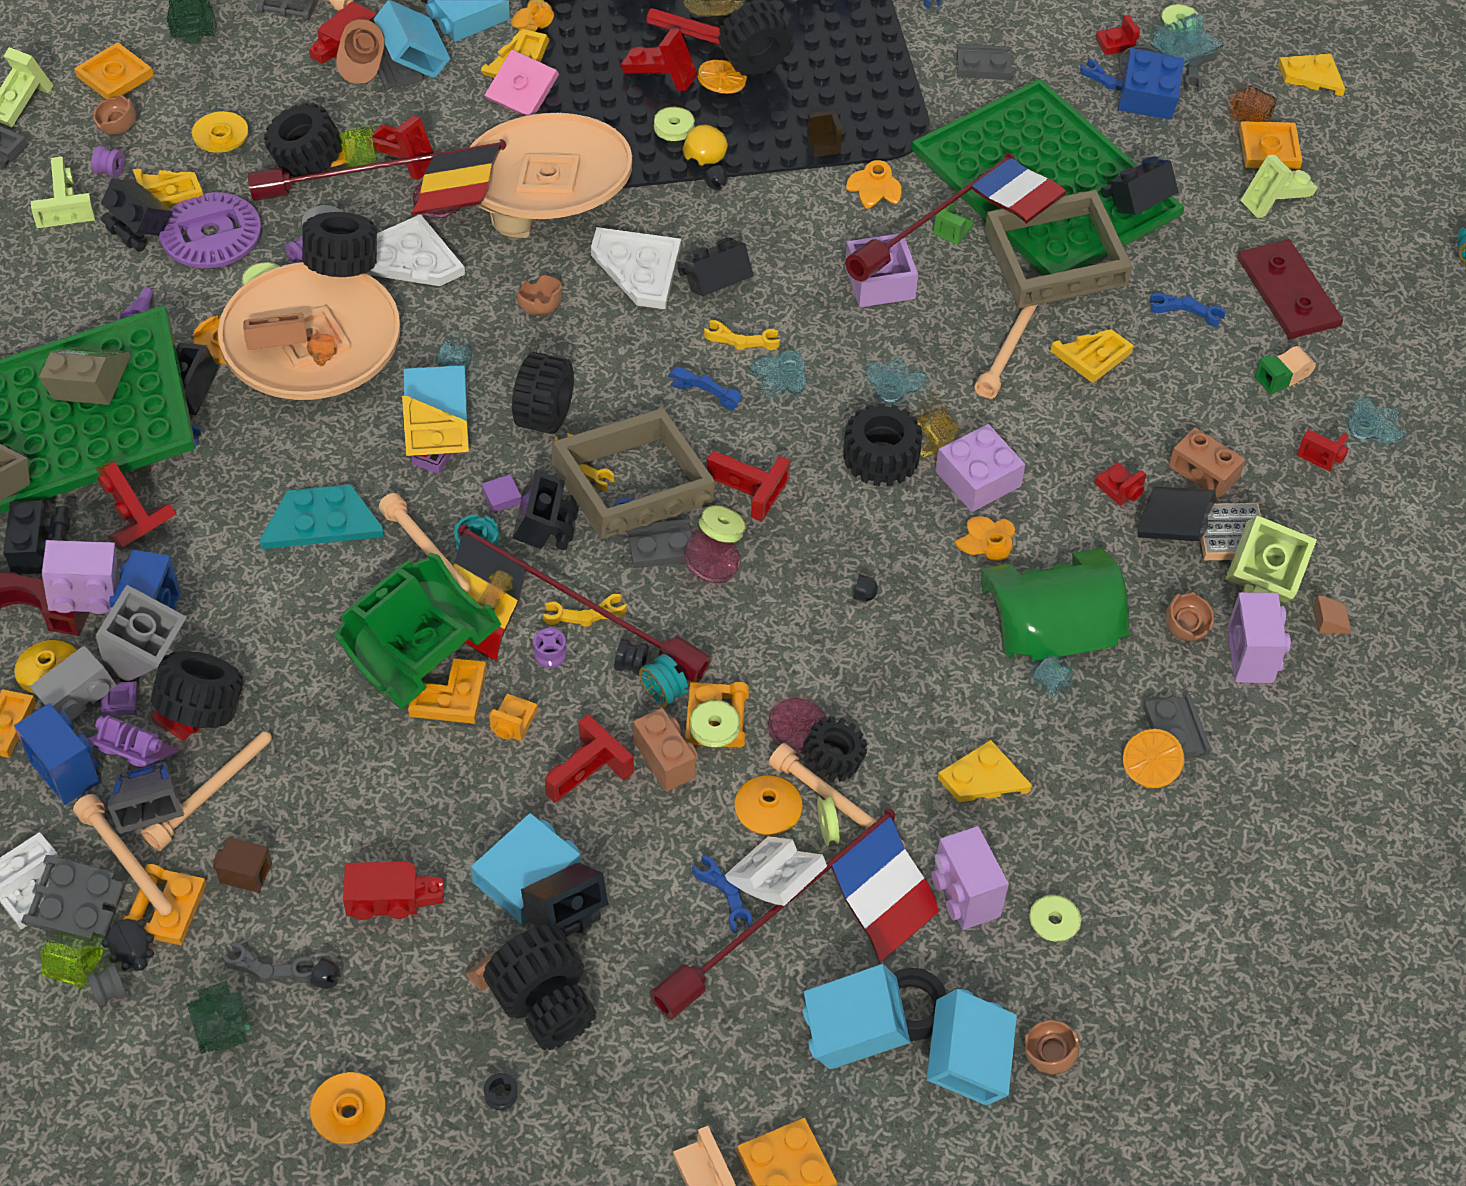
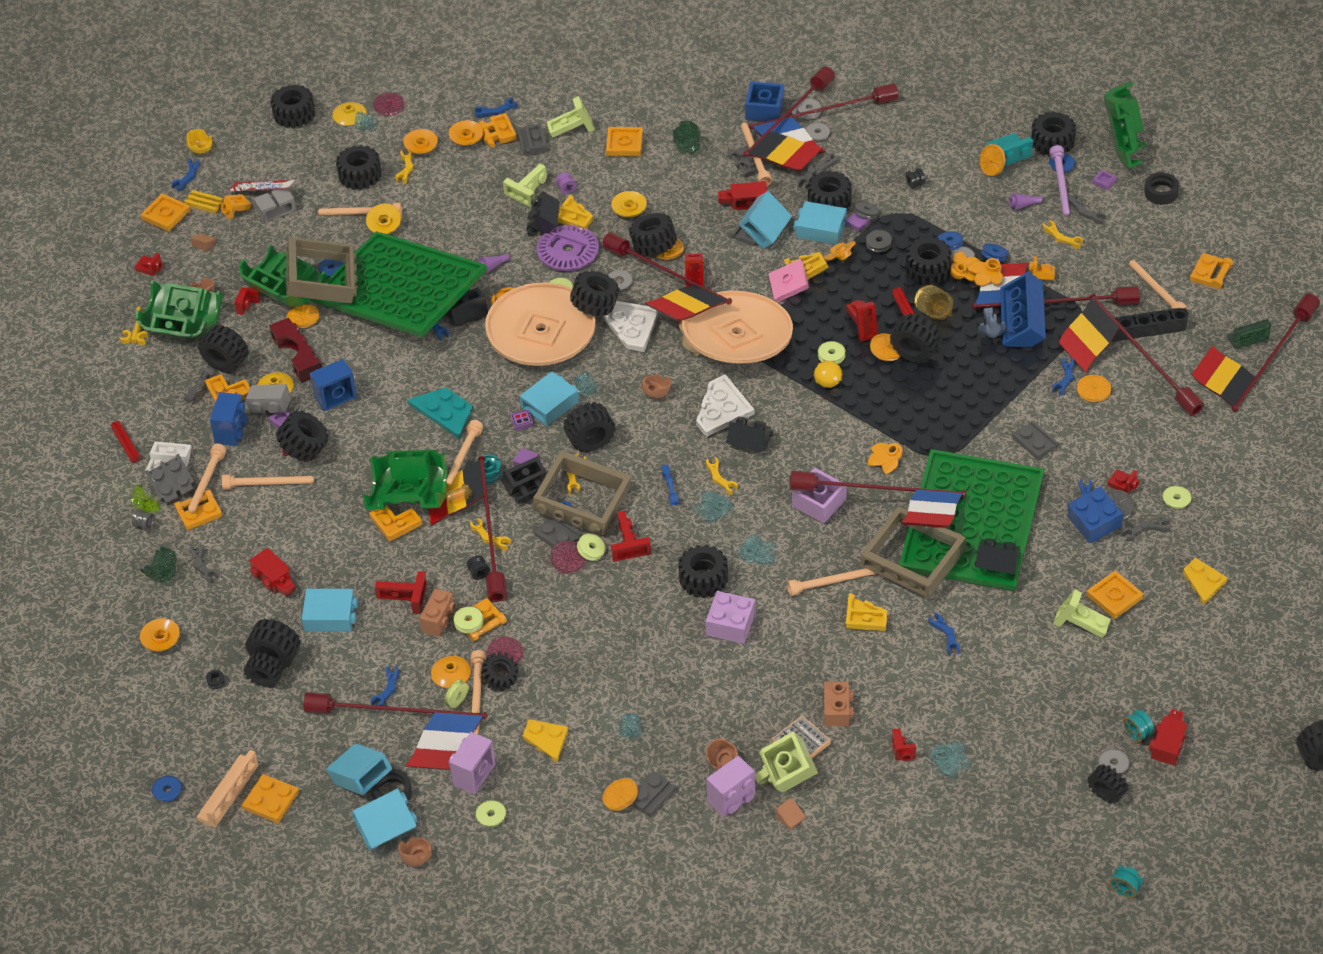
camera: 55 degrees right, 5 degrees down
(27, 534) = (329, 326): black brick -> none
(79, 576) = (310, 351): lavender brick -> none
(83, 374) = (420, 269): dark tan slope -> none
(115, 115) = (596, 163): nougat hair -> none
(129, 507) = (374, 342): red bracket -> none
(129, 944) = (169, 512): black piece -> none
(130, 742) = (257, 438): medium lavender hinge -> none
(137, 634) = (304, 391): light grey slope -> none
(144, 798) = (237, 462): dark grey torso -> none
(242, 864) = (239, 518): reddish brown brick -> none
(275, 331) = (522, 312): nougat slope -> none
(322, 348) = (527, 335): clear orange plate -> none
(323, 972) = (214, 583): black hinge -> none
(358, 147) = (675, 255): clear neon green tile -> none
(360, 51) = (735, 208): nougat piece -> none
(432, 430) = (526, 406): yellow wing -> none
(512, 717) = (404, 552): light orange bracket -> none
(548, 640) = (450, 533): medium lavender wheel -> none
(566, 899) = (318, 632): black brick -> none
(663, 680) = (474, 586): teal wheel -> none
(715, 177) = (815, 394): black hinge -> none
(776, 870) = (412, 694): white slope -> none
(824, 133) = (890, 412): dark brown panel -> none
(865, 589) = (609, 623): black hinge -> none
(939, 428) = (732, 583): clear yellow panel -> none
(951, 225) = (891, 500): bright green panel -> none
(987, 536) = (693, 650): light orange plate -> none
(1060, 607) = (673, 701): green piece -> none
(1121, 484) = (786, 679): red bracket -> none
(1176, 513) = (784, 709): black slope -> none
(1185, 39) = (1152, 510): clear light blue hinge -> none
(1252, 105) = (1134, 569): clear orange brick -> none
(1284, 369) = (943, 698): leg -> none
(1289, 289) = (1011, 667): dark red plate -> none

